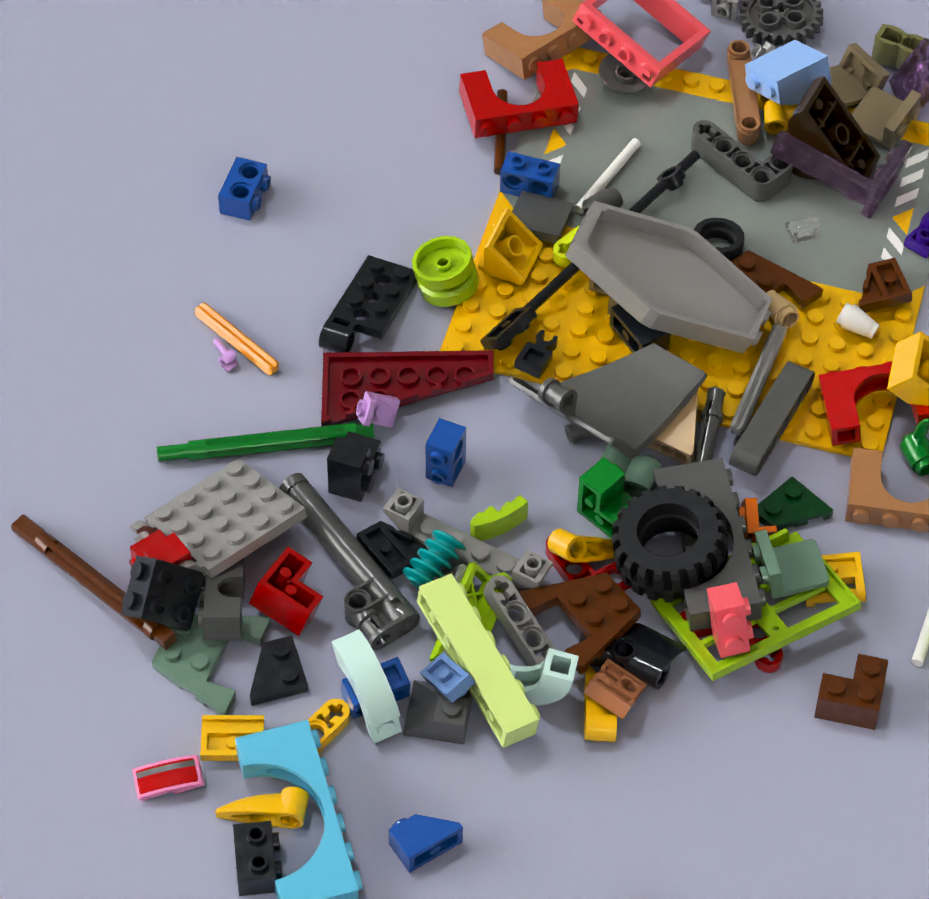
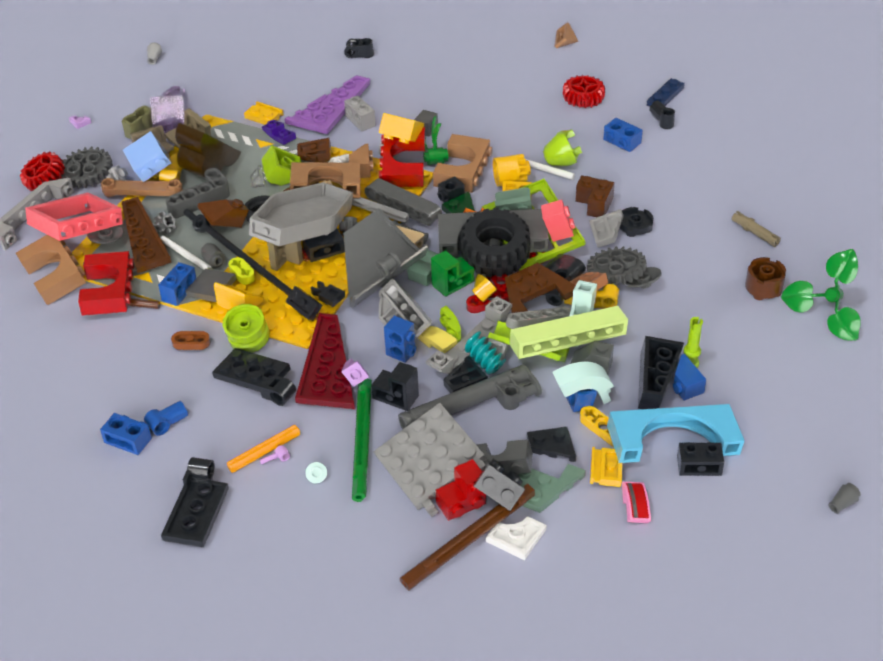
camera: 80 degrees left, 10 degrees down
(103, 642) = (518, 537): none -> white tile
(173, 275) = (196, 478): none -> black hinge
(196, 402) = (316, 472): none -> light aqua plate
(273, 218) = (161, 420): none -> blue piece
(282, 809) = (660, 450): yellow piece -> none
(284, 596) = (498, 426): red brick -> none
(423, 789) = (657, 366): none -> black wedge
(427, 218) = (190, 340): none -> dark orange plate
(447, 677) = (580, 346): medium blue plate -> none
(467, 504) = (438, 338): none -> light yellow slope
(473, 837) = (692, 348): none -> lime pin
(513, 455) = (398, 302): none -> light grey wedge
(614, 126) = (144, 240): none -> reddish brown wing
(651, 771) = (650, 276): none -> dark grey dish
(663, 127) = (164, 222): none -> dark grey gear
(686, 748) = (618, 264): none -> dark grey gear
(692, 194) = (224, 212): none -> reddish brown slope
(692, 352) = (347, 224): none -> dark grey gear
(770, 713) = (606, 227): none -> light grey wing
(795, 273) = (345, 174): none -> medium nougat arch
(802, 776) = (642, 224): none -> black plate
(829, 250) = (278, 165): none -> lime slope
(836, 482) = (450, 189): none -> black brick
(838, 175) = (240, 141): clear purple bracket -> none
(861, 346) = (365, 158): none -> medium nougat slope
(891, 558) = (510, 169): none -> yellow gear

